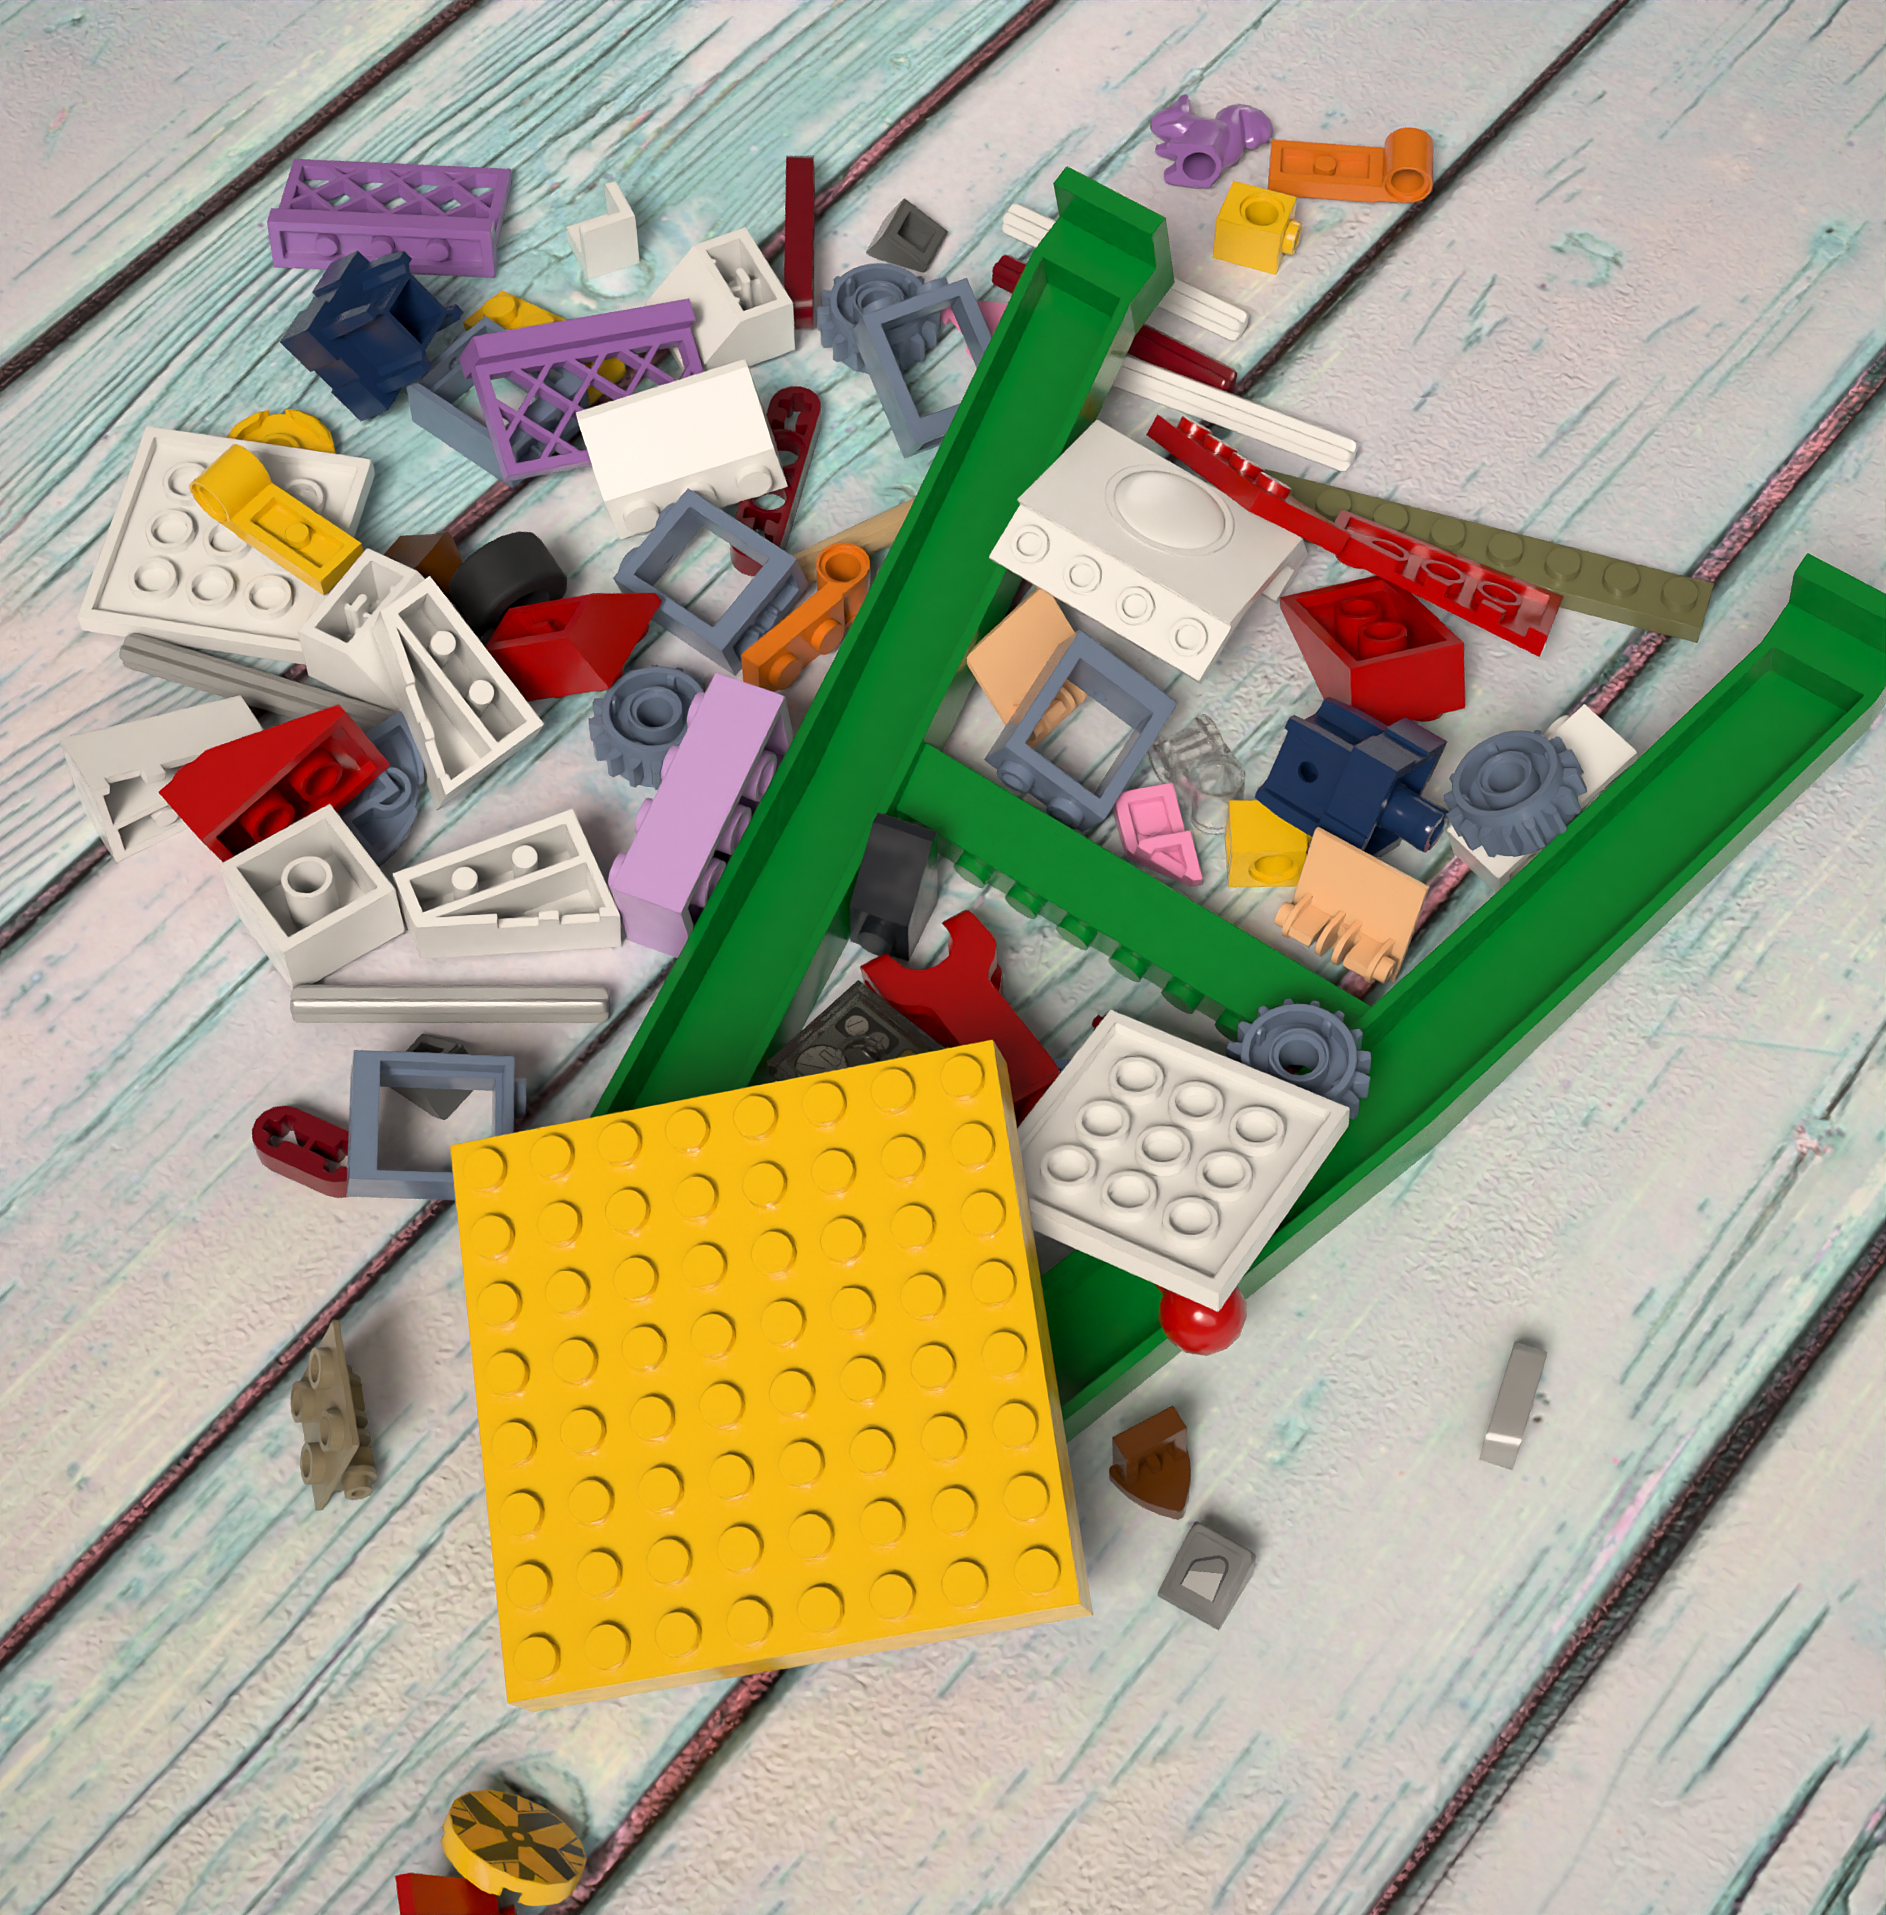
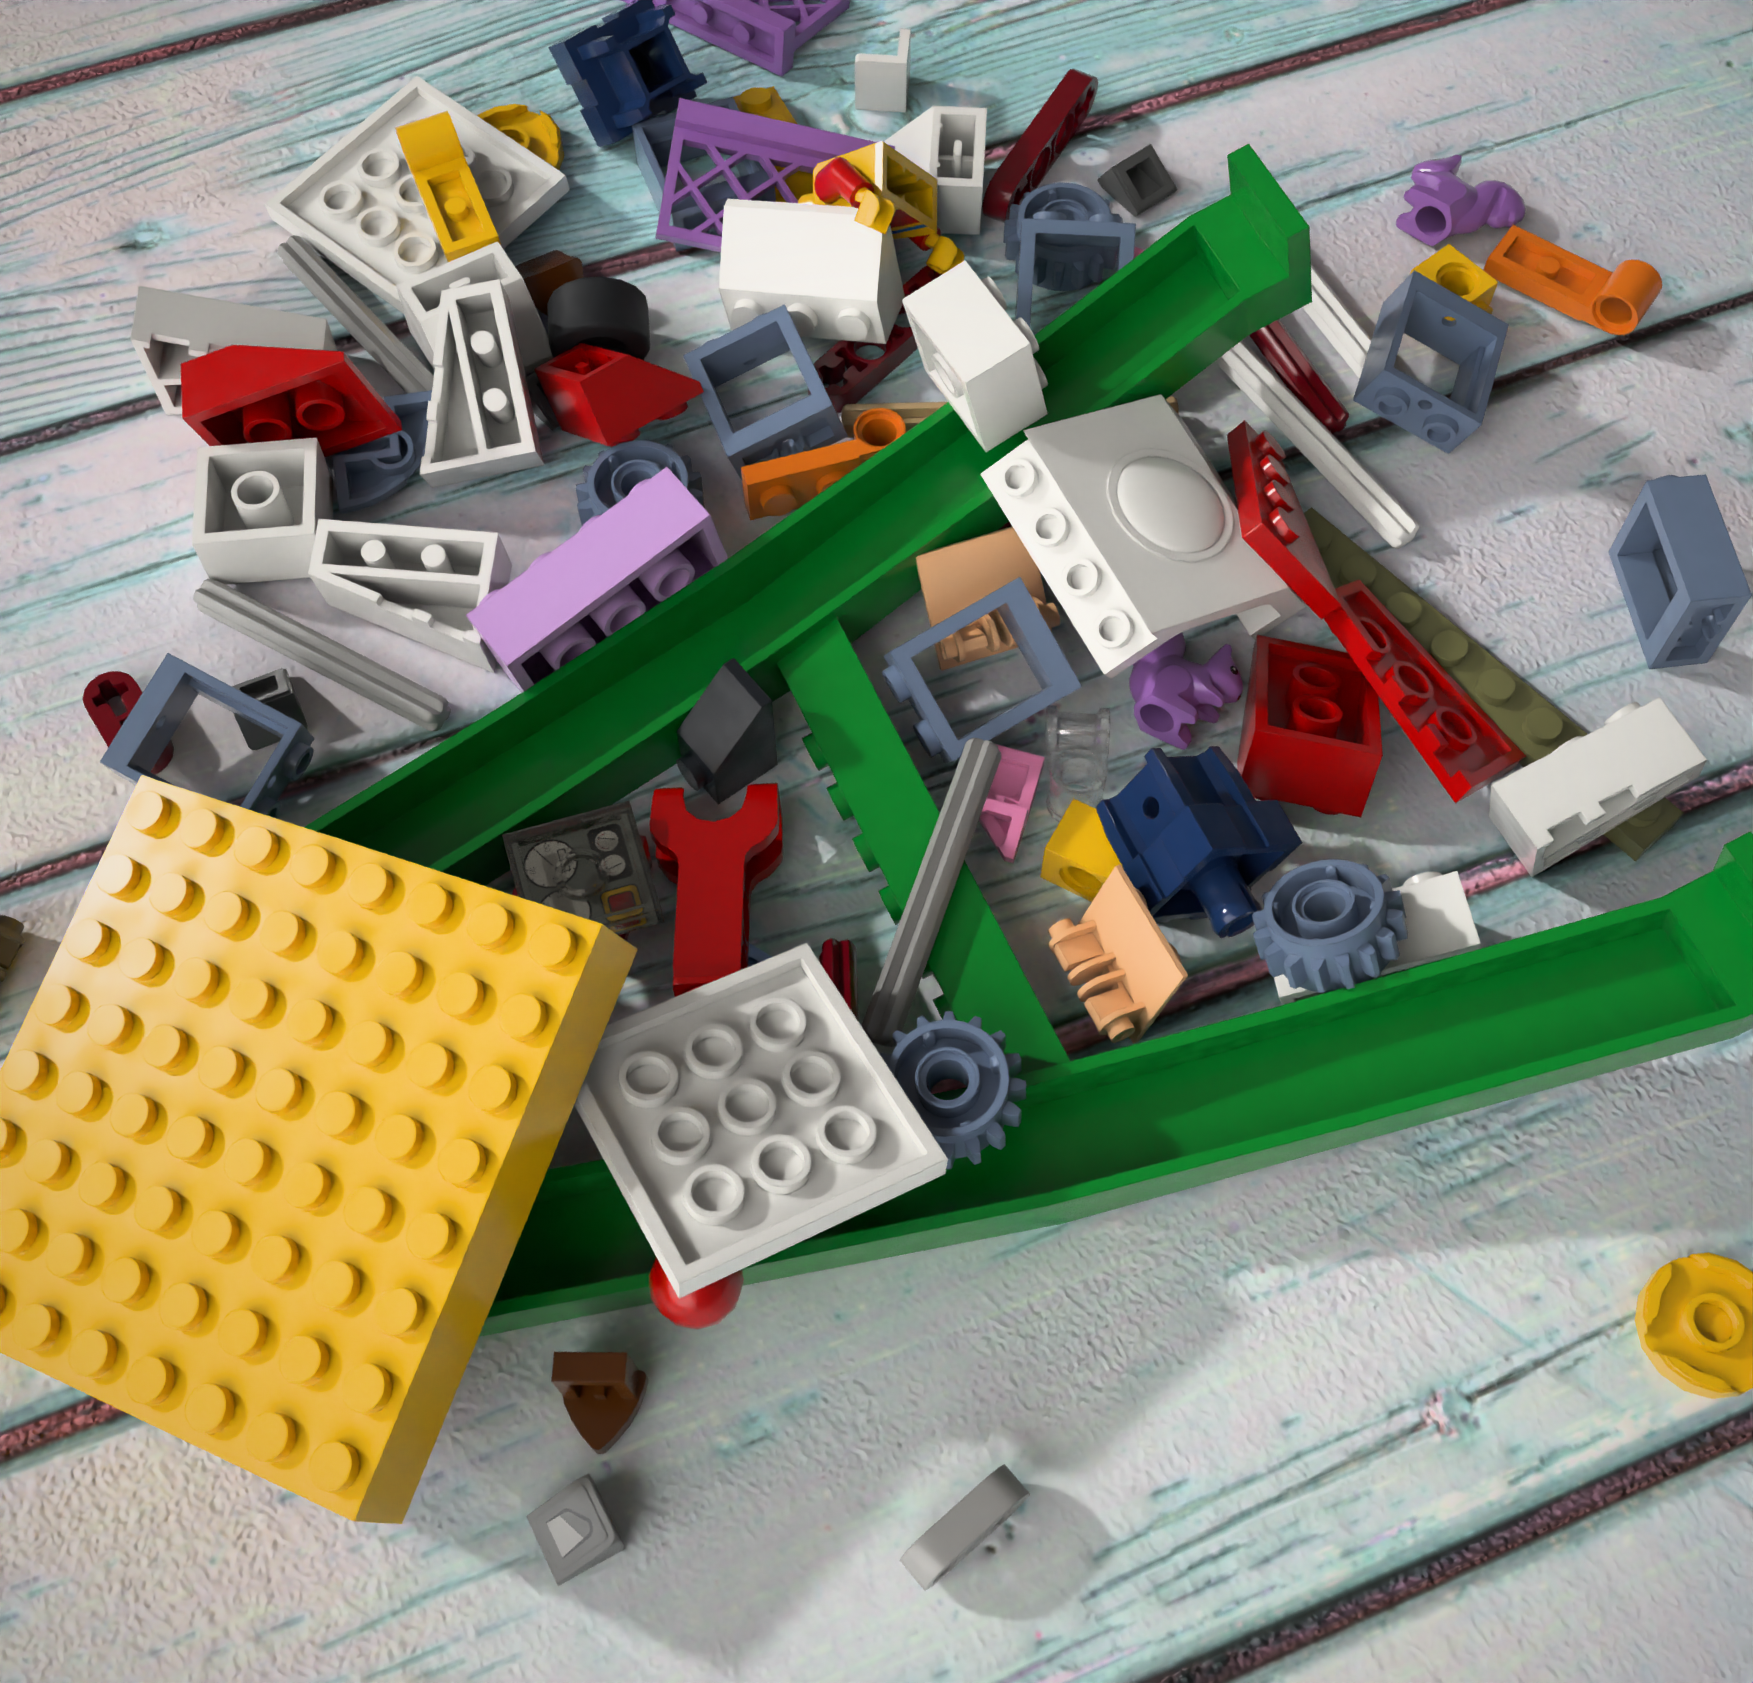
camera: 30 degrees right, 5 degrees up
(713, 338) = (887, 193): none -> torso
(932, 452) = (978, 354): none -> white brick
(1166, 913) = (931, 891): none -> light grey axle
(1250, 676) = (1180, 692): none -> medium lavender animal
(1304, 260) = (1470, 340): none -> sand blue window
(1636, 591) = (1593, 784): none -> white wedge
(1639, 384) = (1678, 571): none -> sand blue window

